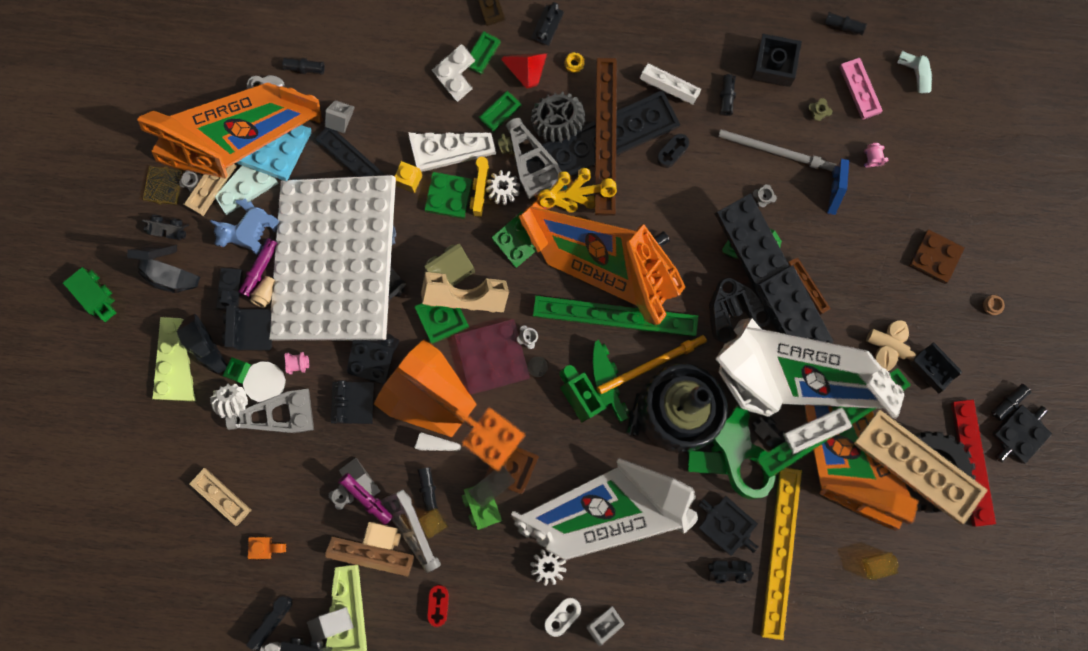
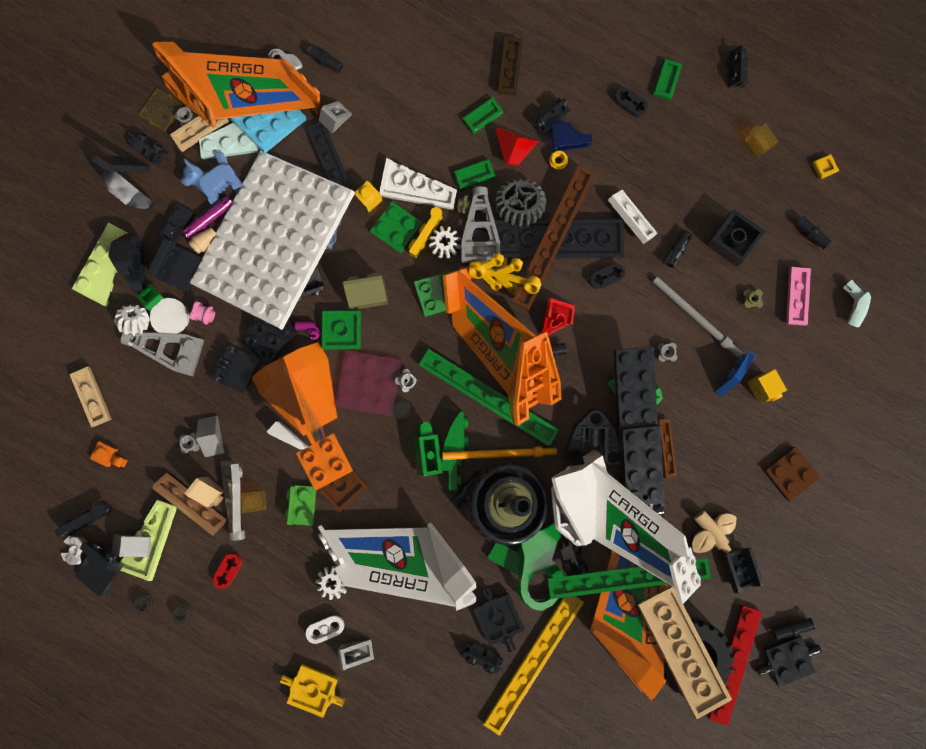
camera: 30 degrees right, 5 degrees up
(91, 294) = (60, 176): green brick -> none
(372, 504) = (196, 436): magenta pin -> none
(408, 328) = (310, 327): none -> magenta arm
(427, 489) = (262, 470): black pin -> none
(450, 72) = (447, 120): white plate -> none
(488, 296) = (387, 331): tan arch -> none
(492, 486) = (308, 497): clear smoke brick -> none
(573, 38) = (566, 138): none -> clear blue arch
(643, 207) = (557, 315): none -> red slope
(817, 430) = (611, 579): white tile -> none
(873, 184) = (767, 386): none -> yellow brick
(875, 155) = (781, 361): bright pink brick -> none
(880, 565) = (612, 714): clear yellow brick -> none
(993, 305) = (820, 539): medium nougat plate -> none

